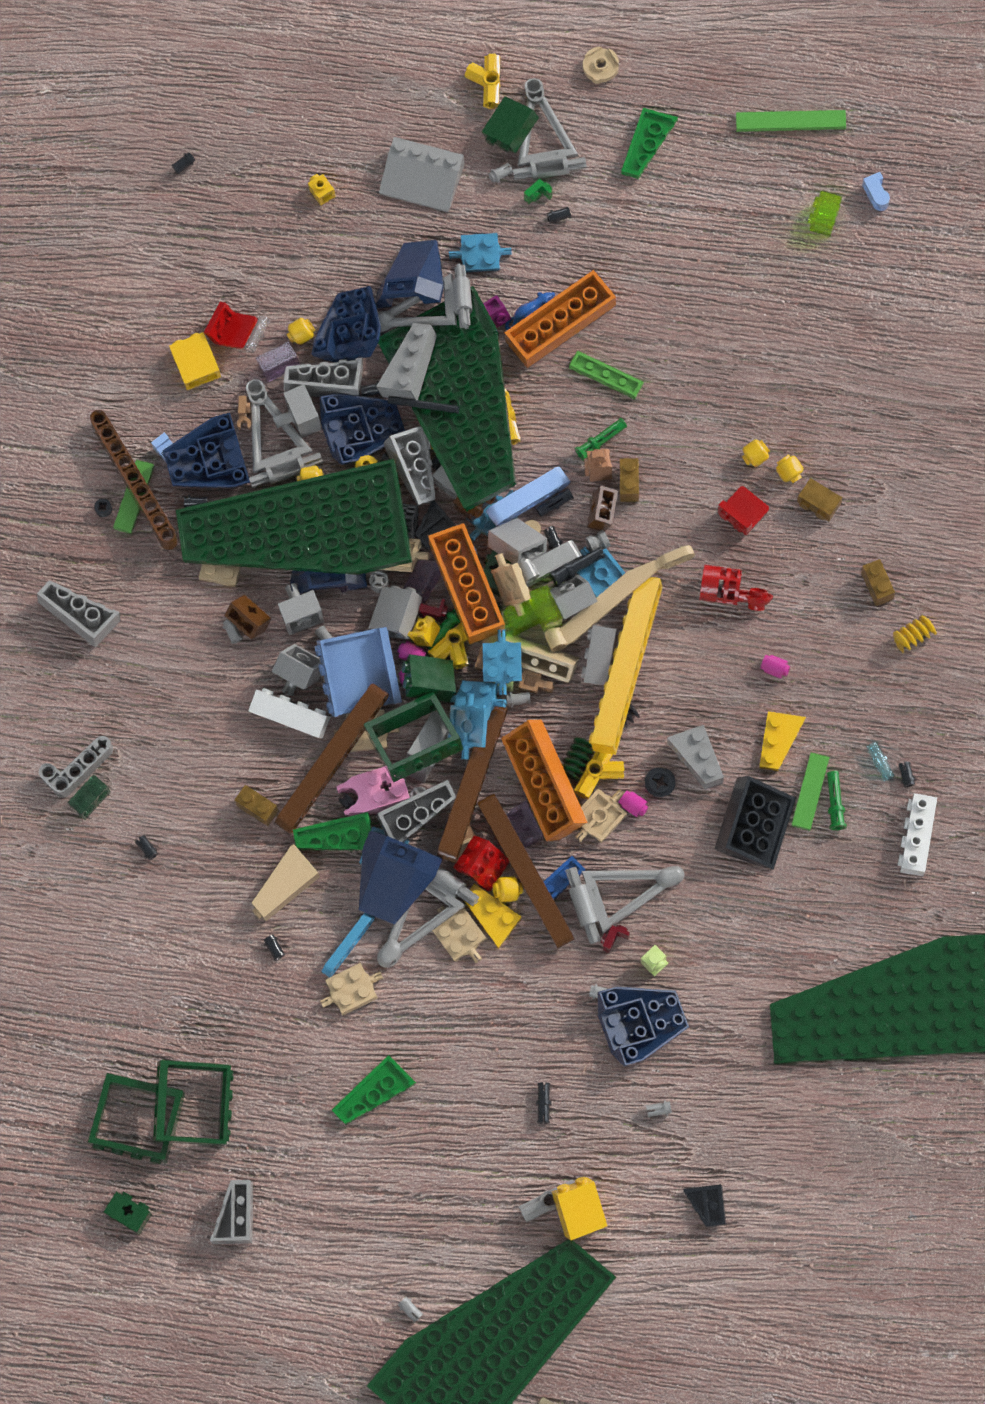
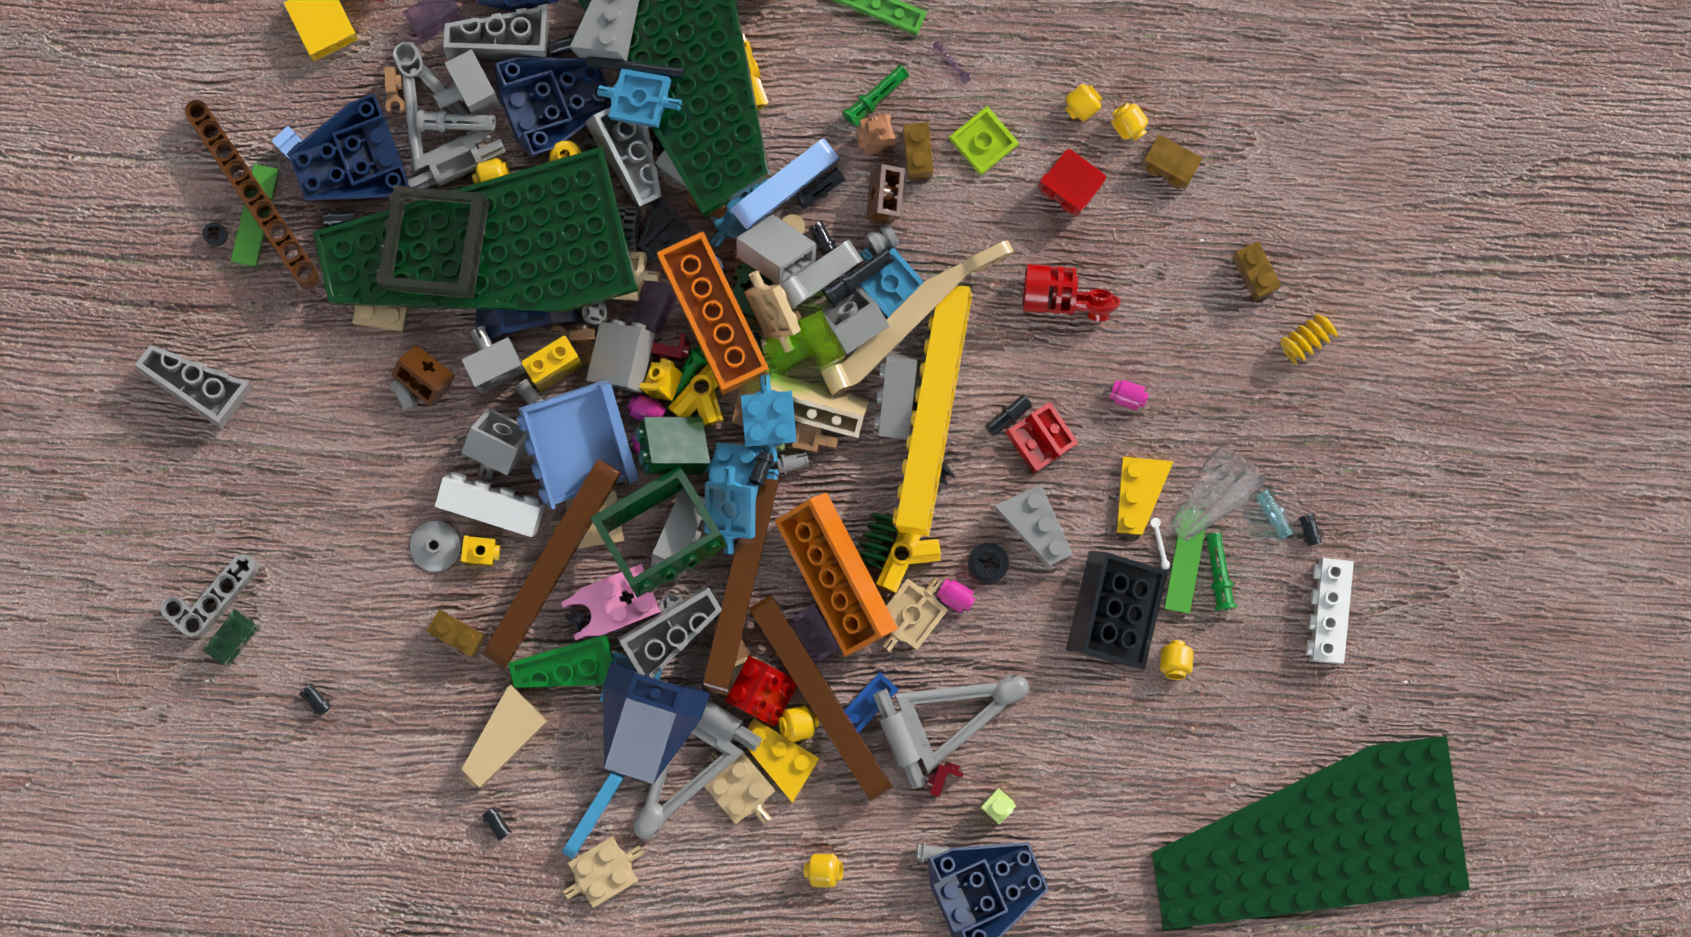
camera: 15 degrees left, 10 degrees up
(247, 751) = (444, 555): none -> light grey dish
(278, 435) = (443, 119): none -> light grey pin
(279, 753) = (469, 553): none -> yellow brick
(292, 525) = (472, 246): none -> clear smoke window
(344, 613) = (552, 363): none -> yellow panel
(367, 596) = (581, 334): none -> medium nougat plate
(424, 425) = (639, 98): none -> dark azure plate
(495, 694) = (761, 468): none -> black pin
(518, 998) = (823, 870): none -> yellow head
(668, 430) = (965, 77): none -> clear purple hinge
(679, 477) = (983, 141): none -> lime tile
(683, 675) = (1009, 415): none -> black axle
(707, 693) = (1041, 437): none -> red slope
(789, 762) = (1155, 523): none -> white hinge
(797, 862) = (1176, 660): none -> yellow head
(844, 735) = (1223, 486): none -> clear wedge

